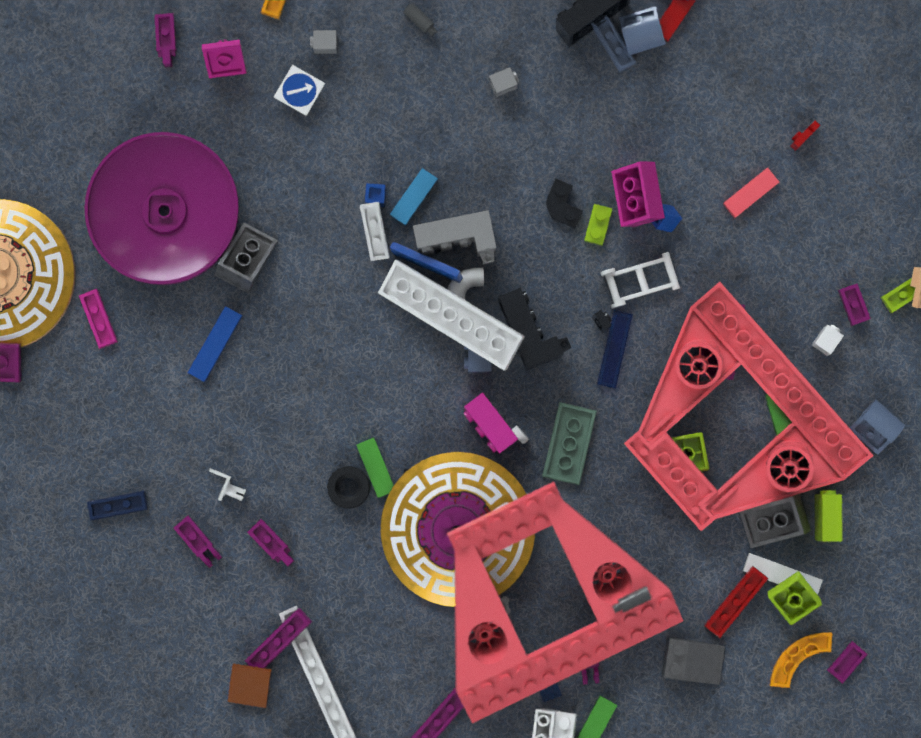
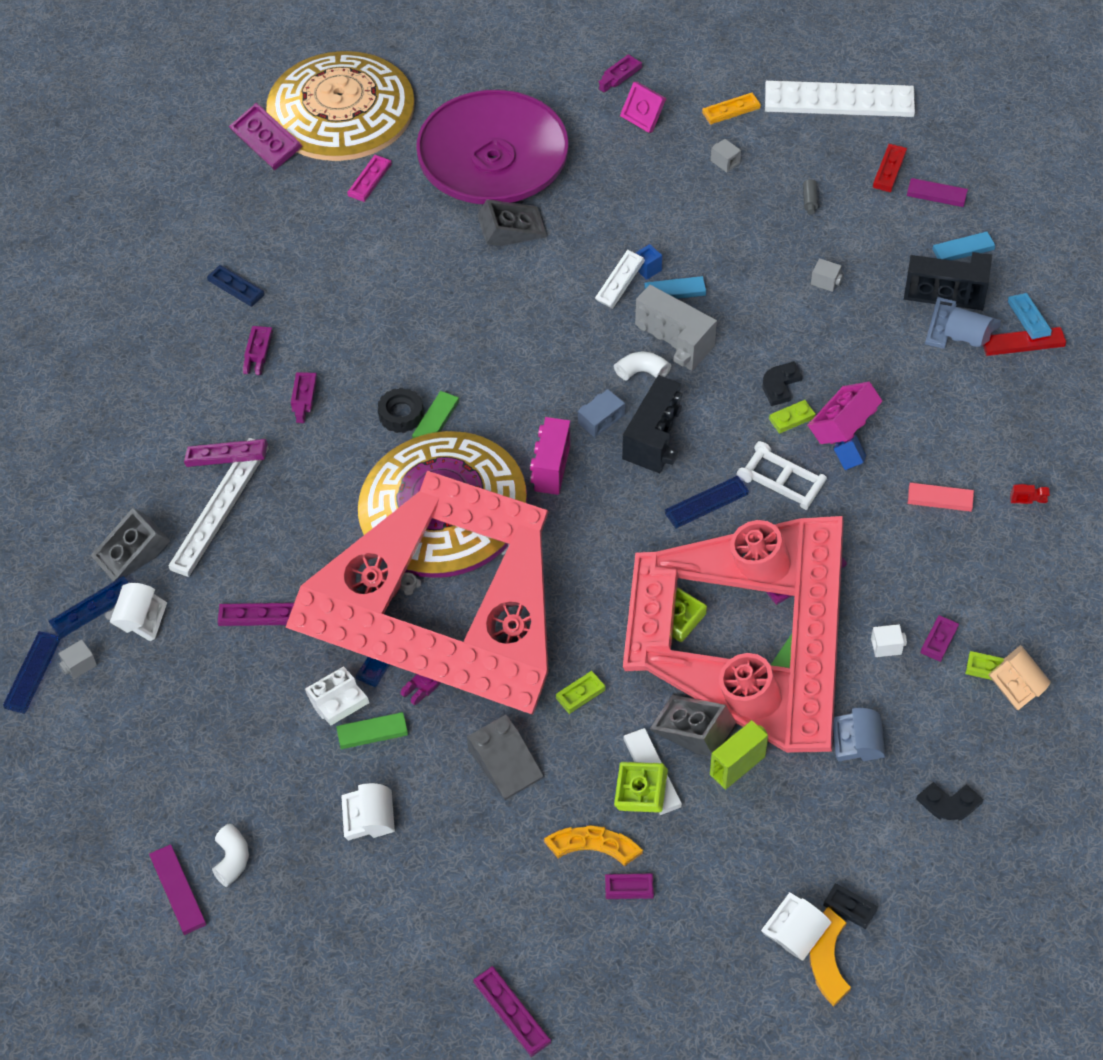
camera: 50 degrees right, 30 degrees down
(215, 344) = (425, 254): blue tile -> none
(228, 489) = (318, 335): white bracket -> none
(249, 685) = (169, 462): dark orange tile -> none
(299, 90) = (672, 167): piece -> none
(426, 262) = (633, 324): blue tile -> none
(451, 314) = (609, 364): white plate -> none
(520, 434) = (565, 488): white tile -> none
(569, 443) = (595, 530): sand green tile -> none
(602, 320) = (718, 466): black plate -> none
(632, 600) = (509, 645): dark grey cylinder -> none
(687, 569) = (580, 692): none -> lime plate
(736, 601) = (591, 751): red tile -> none

